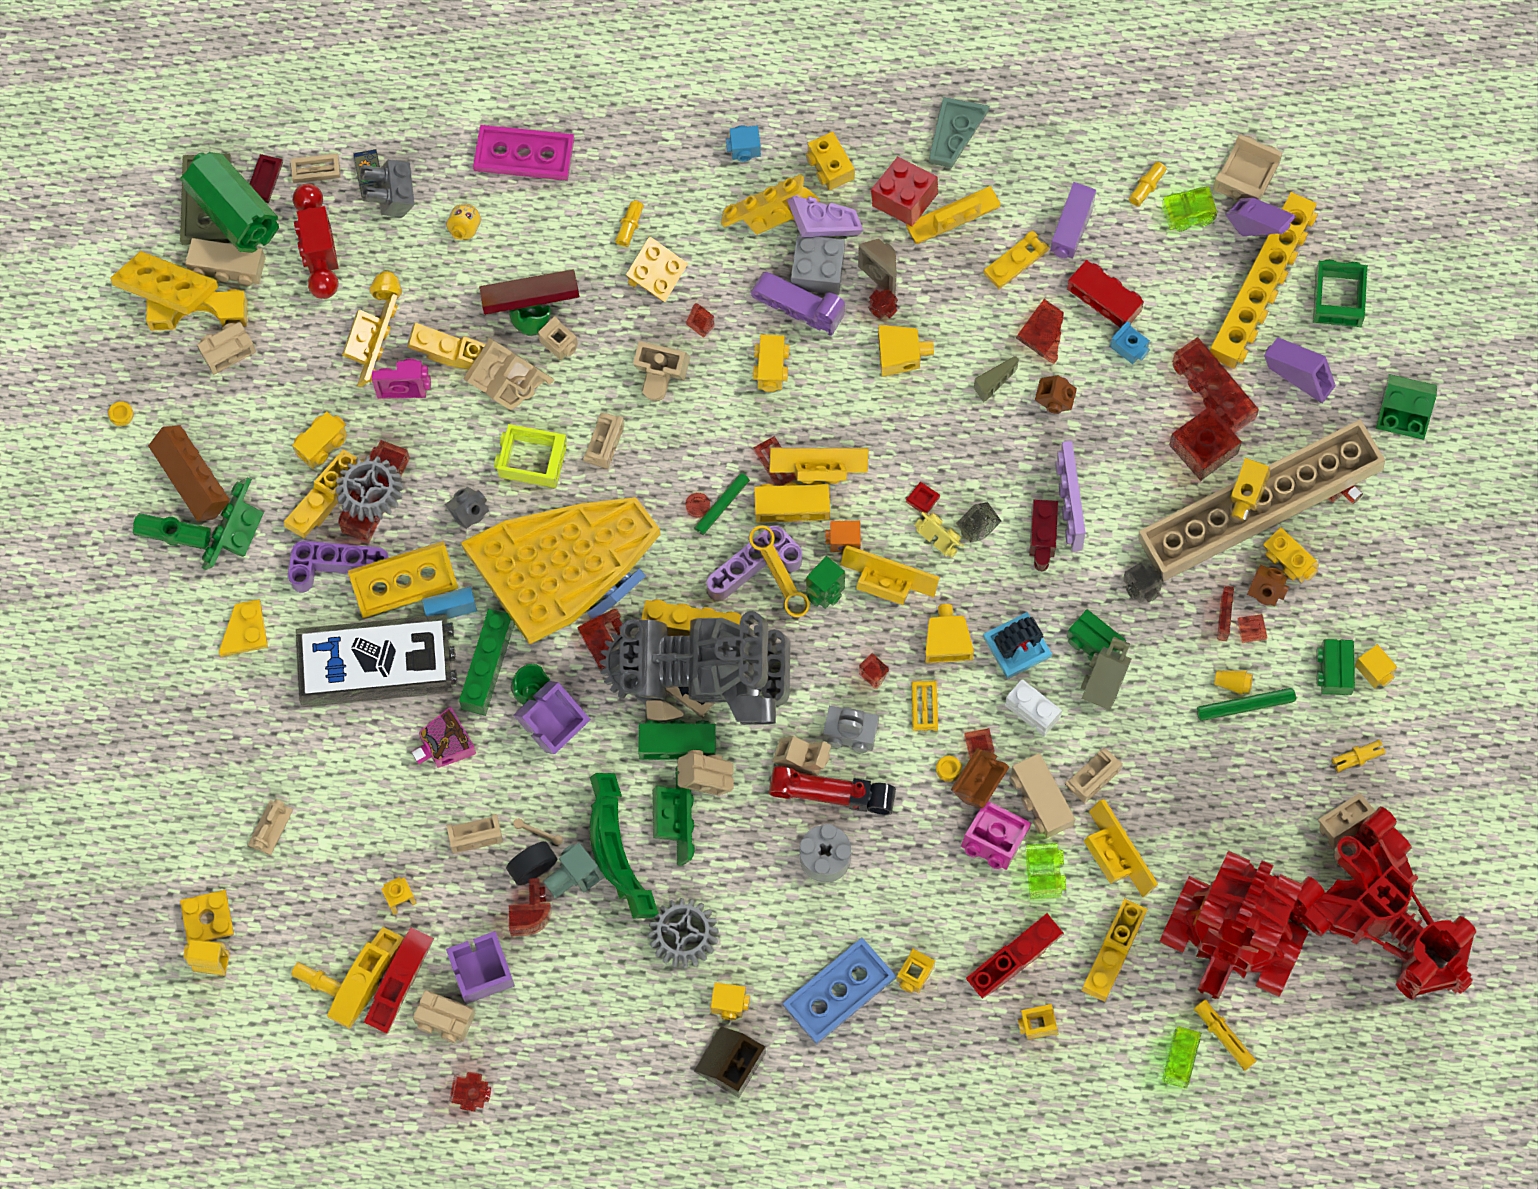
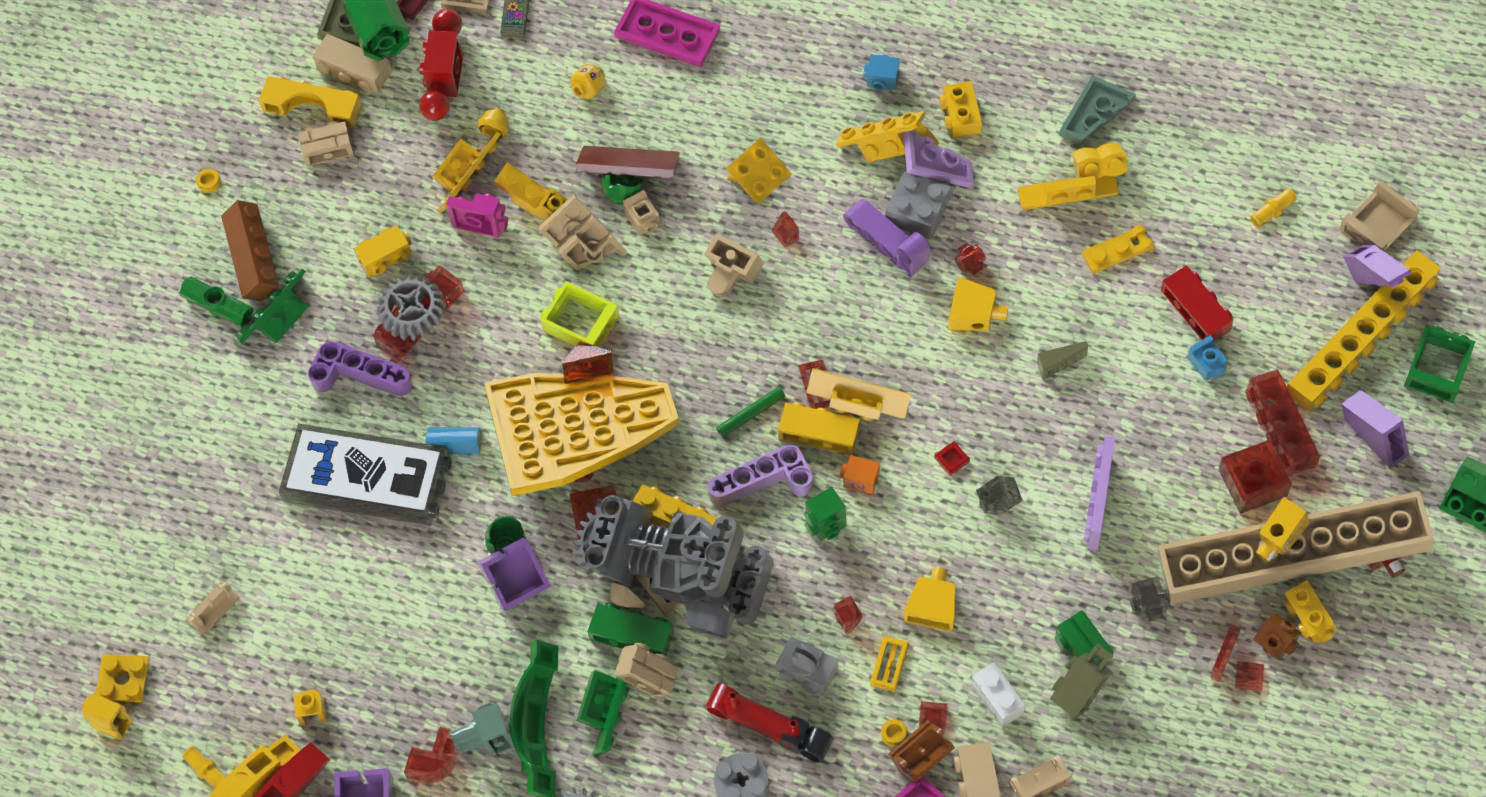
camera: 20 degrees right, 5 degrees down
(164, 282) = (287, 68): yellow plate -> none
(245, 629) = (253, 412): yellow wing -> none
(321, 499) = (362, 310): yellow slope -> none
(391, 568) = (426, 389): yellow plate -> none
(393, 189) = (532, 34): flat silver brick -> none
(444, 741) = (404, 570): torso -> none
(467, 507) = (502, 350): flat silver brick -> none
(475, 834) = (404, 669): tan hinge -> none
(486, 662) = (469, 505): green brick -> none
(518, 824) = (451, 671): tan hinge -> none
(531, 863) = (447, 711): black tyre -> none
(554, 497) = (586, 362): none -> clear red slope
(604, 440) = (656, 321): tan hinge -> none
(615, 594) = (614, 471): medium blue wing -> none
(629, 223) = (746, 122): yellow axle -> none
(697, 505) = (726, 406): clear red tile -> none
(770, 368) = (840, 290): yellow brick -> none
(779, 571) = (783, 490): yellow piece -> none
(801, 755) = (749, 679): tan brick -> none
(879, 263) = (978, 218): dark tan slope -> none
(886, 577) = (891, 526): yellow bracket -> none
(904, 191) = (1025, 155): red brick -> none
(932, 527) = (951, 488): light yellow hinge -> none
(978, 178) = (1105, 160): none -> yellow brick
(1017, 645) = (1001, 628): plate -> none
(1043, 331) = (1123, 325): clear red wing -> none
(1043, 532) = (1062, 522): dark red brick -> none
(1055, 394) = (1116, 389): dark orange brick -> none
(1073, 220) = (1185, 224): medium lavender slope -> none
(1189, 209) = (1308, 242): clear neon green brick -> none
(1234, 680) = (1215, 724): yellow cone -> none
(1246, 704) = (1220, 751): green axle -> none
(1337, 667) = (1326, 738): green brick -> none
(1376, 667) = (1368, 749): yellow brick -> none

